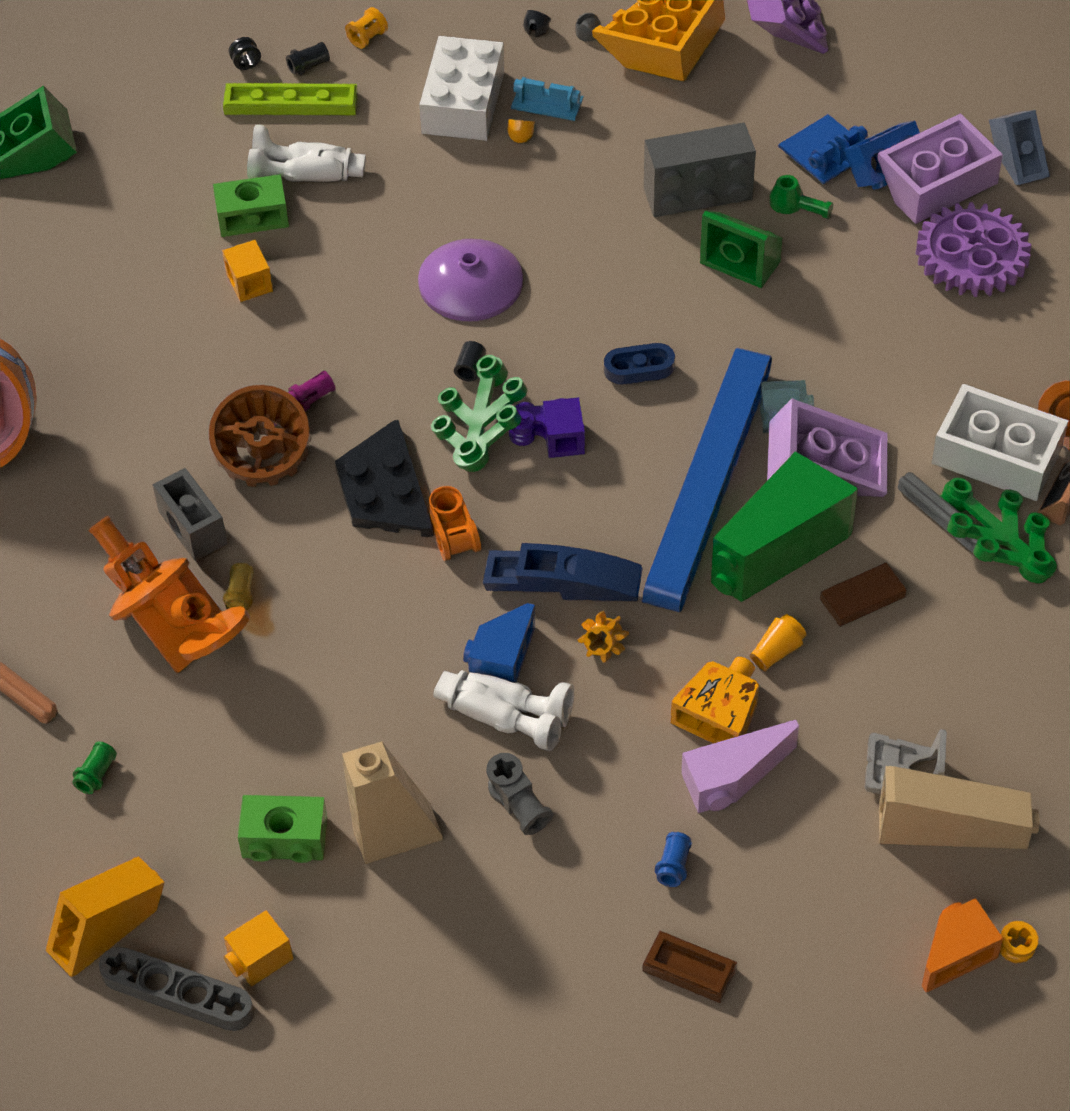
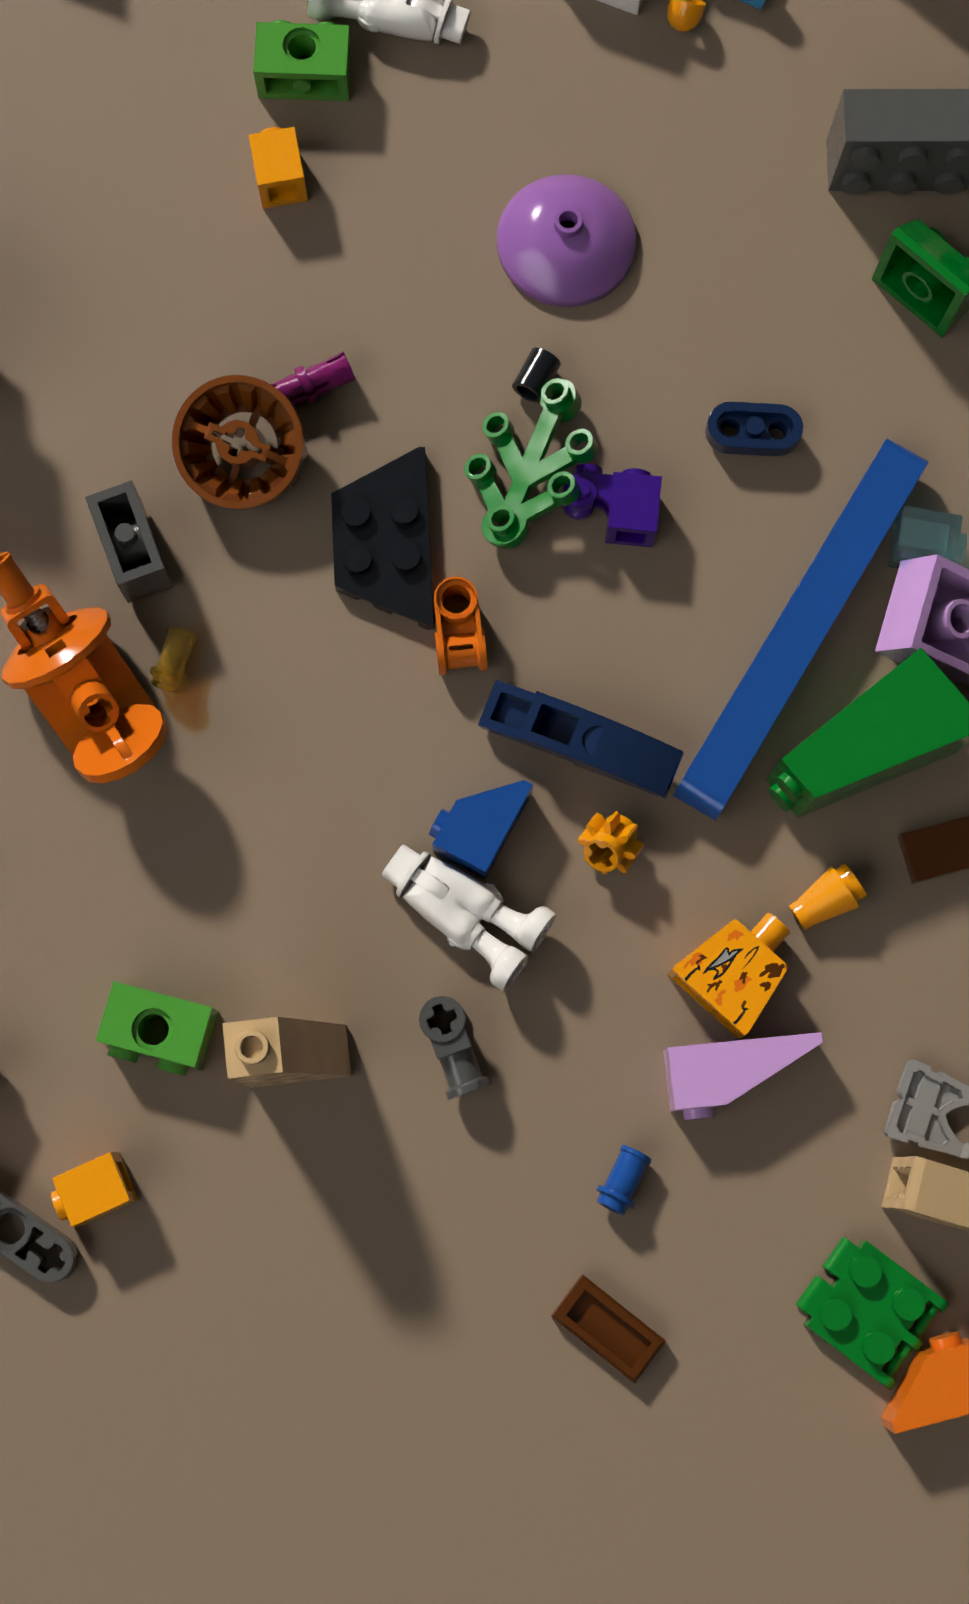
camera: 10 degrees right, 25 degrees up
(887, 908) = (869, 1308): none -> green plate

